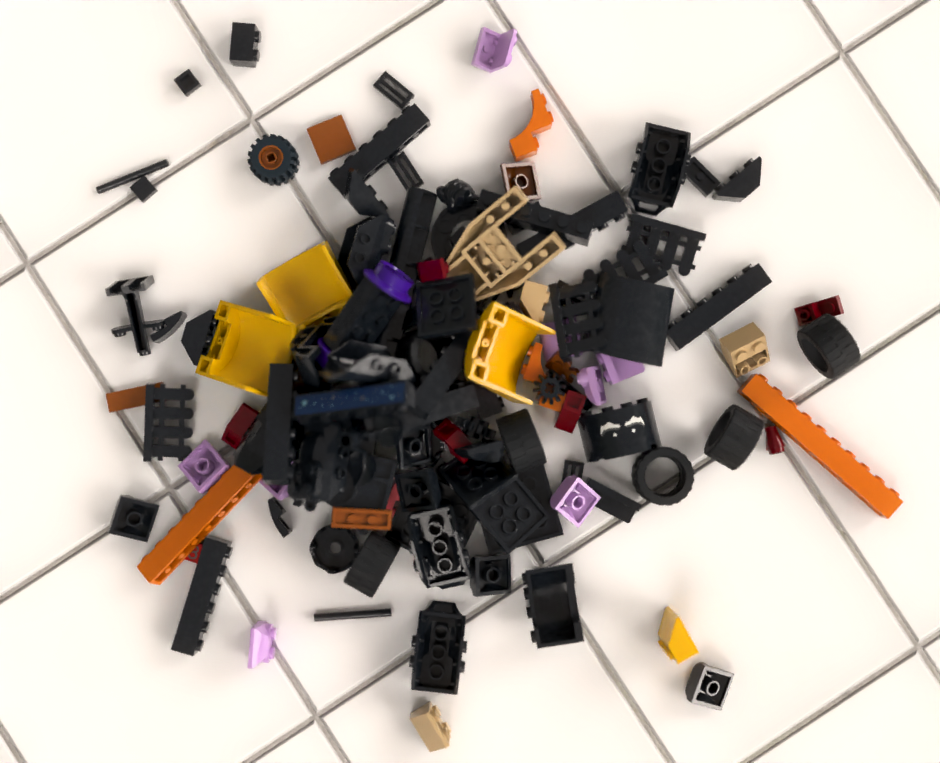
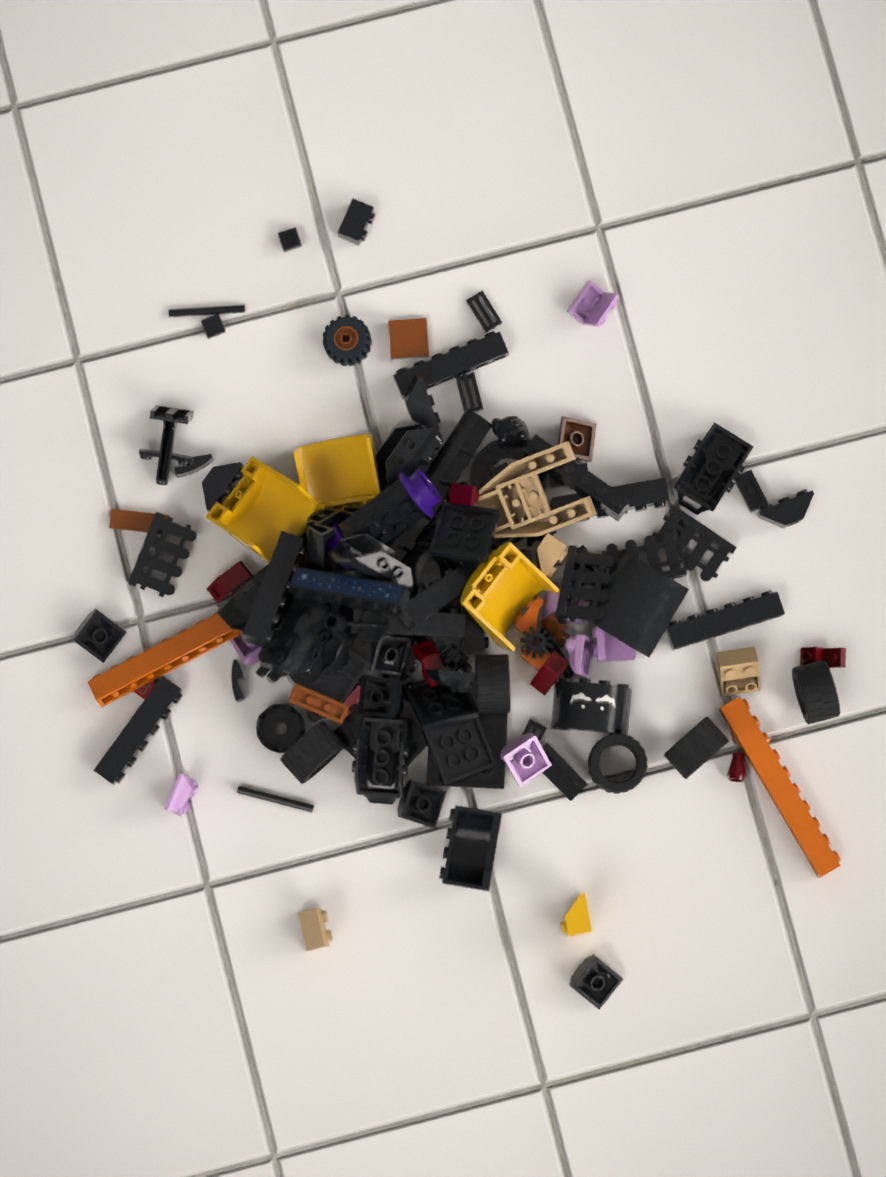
camera: 20 degrees right, 5 degrees down
(204, 466) = (182, 608): lavender slope -> none
(438, 649) = (347, 857): black slope -> none
(525, 144) = (591, 405): orange arch -> none

